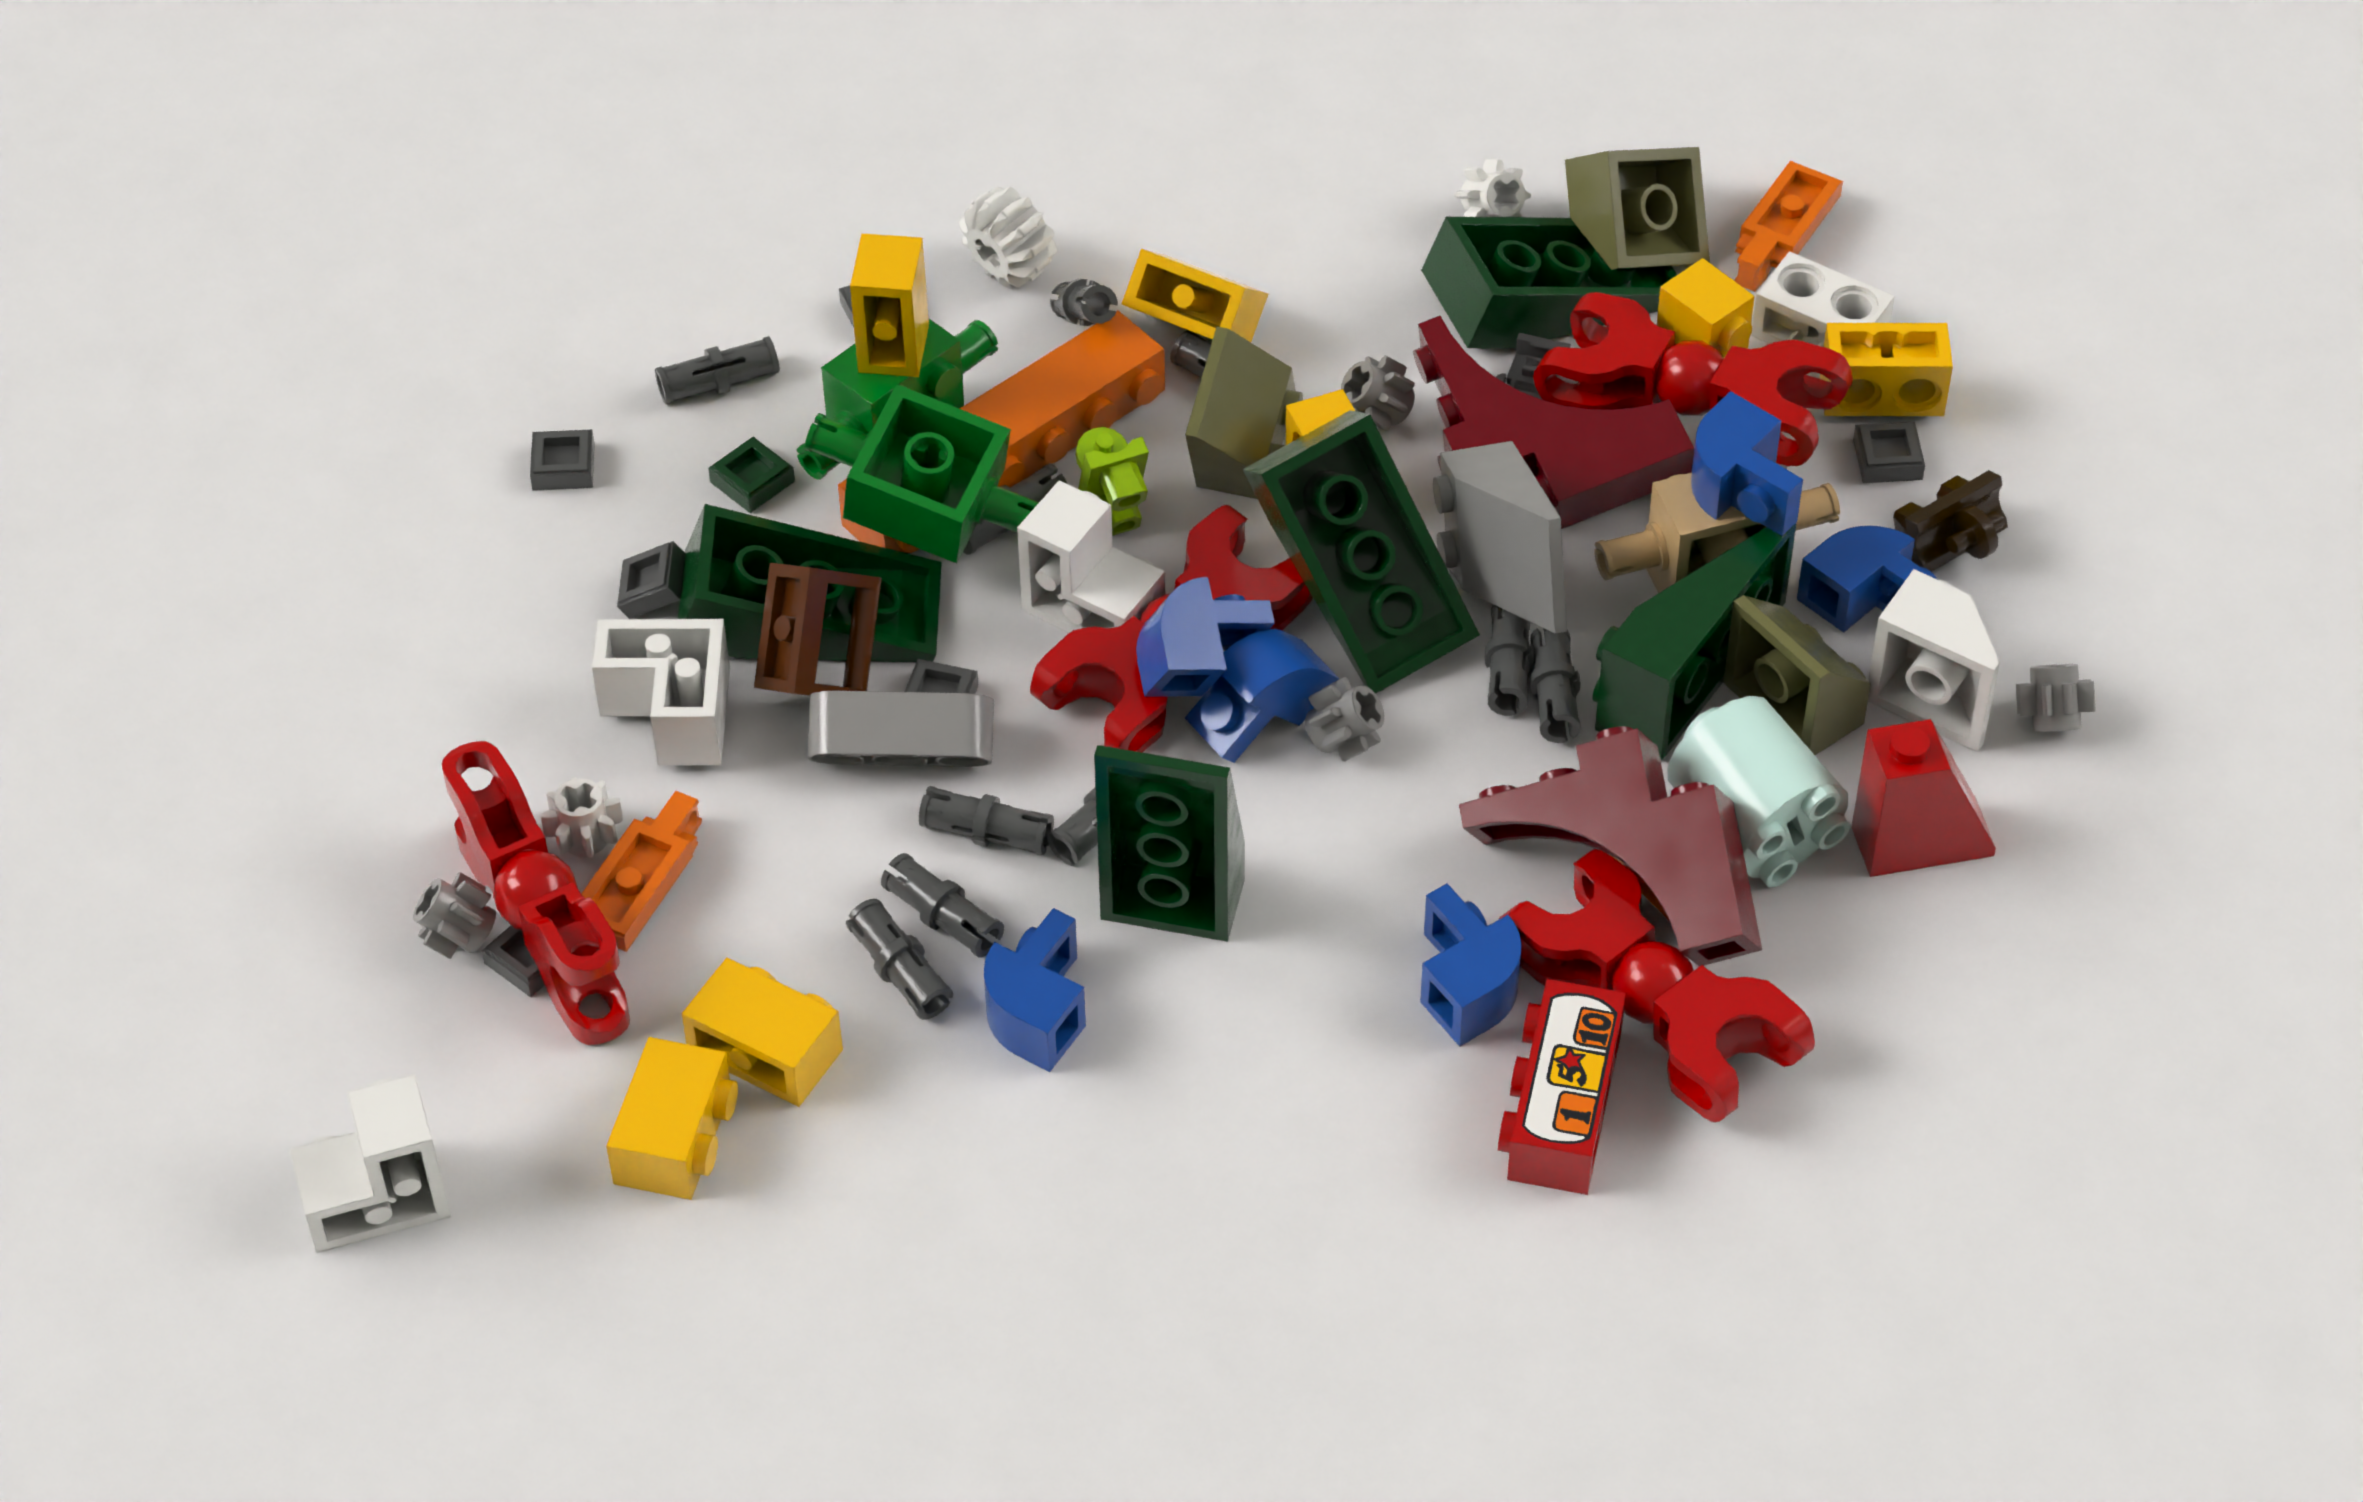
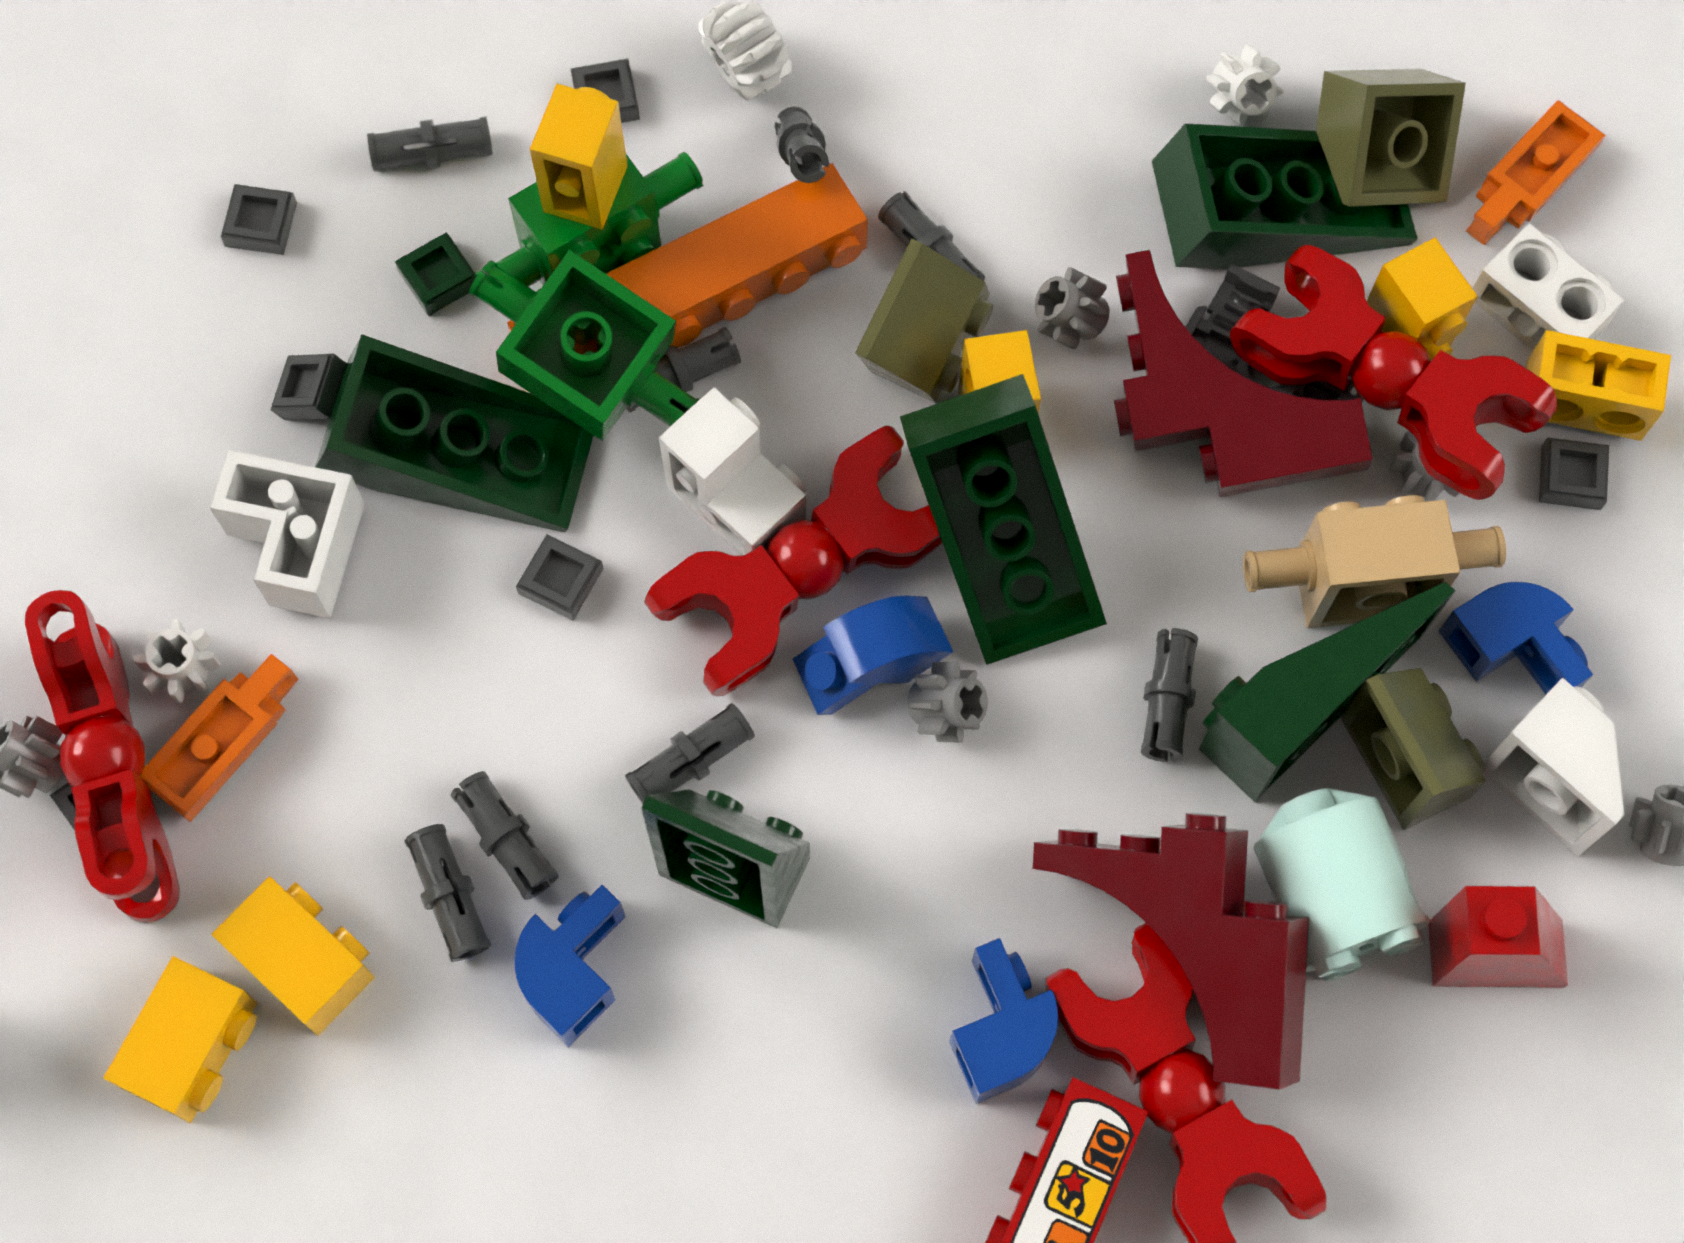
camera: 10 degrees right, 20 degrees up
(794, 629) = (420, 494): reddish brown tile -> none
(900, 728) = (507, 623): light grey beam -> none
(985, 820) = (570, 742): dark grey pin -> none
(1114, 474) = (780, 361): lime hips -> none
(1186, 637) = (797, 593): brick -> none
(1192, 296) = (914, 159): yellow brick -> none
(1501, 533) = (1152, 526): light grey slope -> none
(1509, 662) = (1131, 652): dark grey pin -> none
(1739, 467) = (1400, 520): blue brick -> none
(1958, 522) = (1623, 589): dark brown hips -> none

